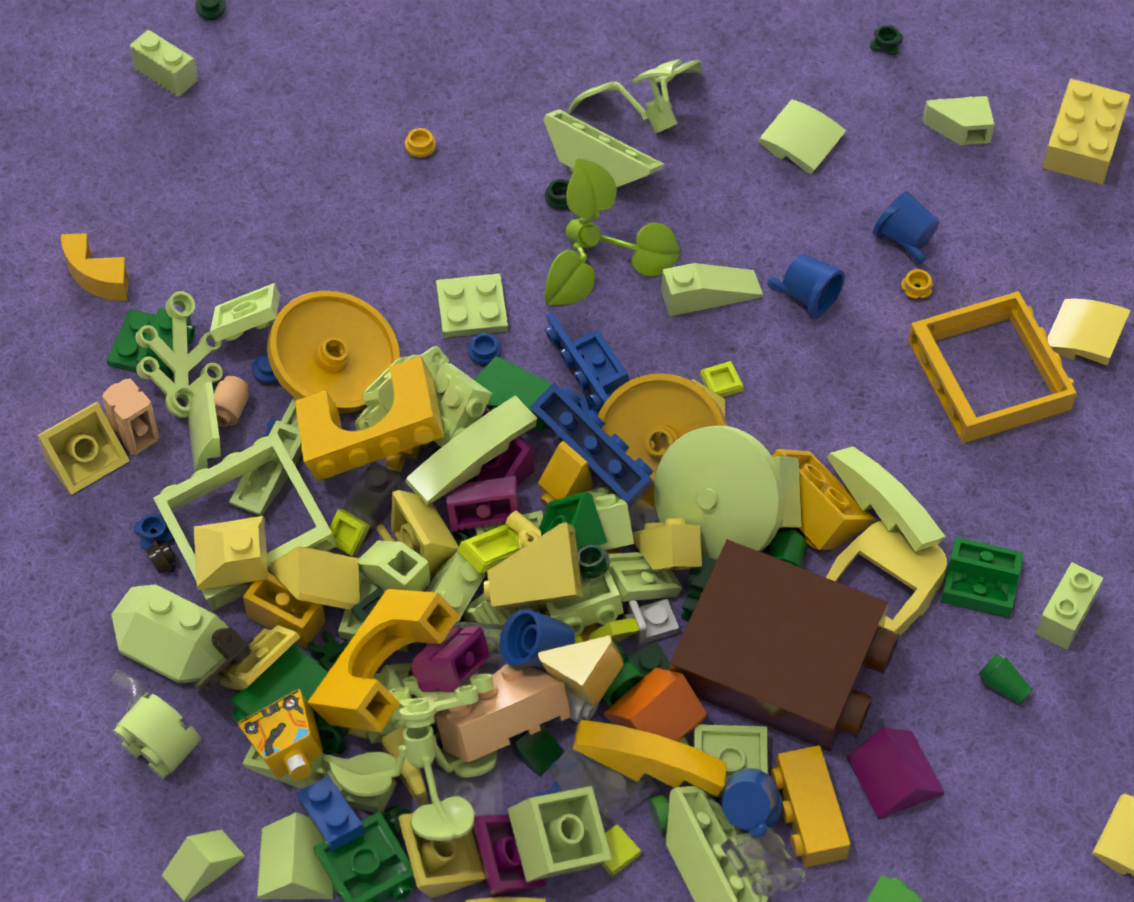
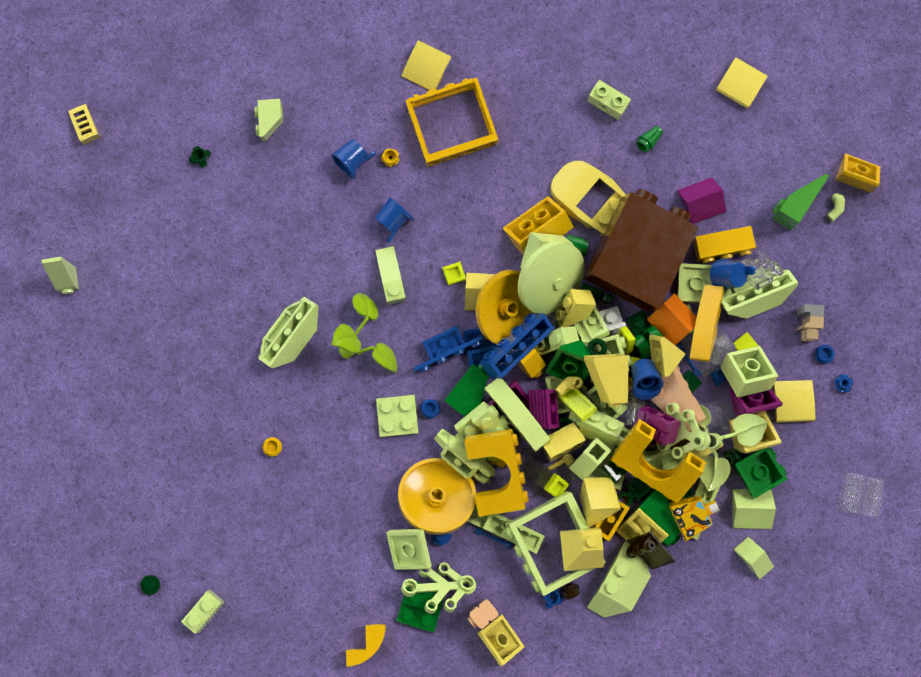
camera: 90 degrees left, 25 degrees up
(130, 685) = (654, 599): clear arm -> none
(157, 734) = (688, 585): yellowish green brick -> none
(203, 427) = (493, 569): yellowish green slope -> none
(230, 400) = (467, 557): light nougat brick -> none
(330, 813) = (736, 490): blue plate -> none
(555, 188) = (311, 357): dark green plate -> none
(659, 110) = (256, 296): yellowish green plant -> none
(659, 810) = (727, 320): bright green tile -> none
(801, 135) = (275, 214): yellowish green slope -> none
(892, 502) = (541, 187): yellowish green slope -> none
(982, 577) = (585, 143): green slope -> none
(1086, 131) = (282, 46): light yellow brick -> none

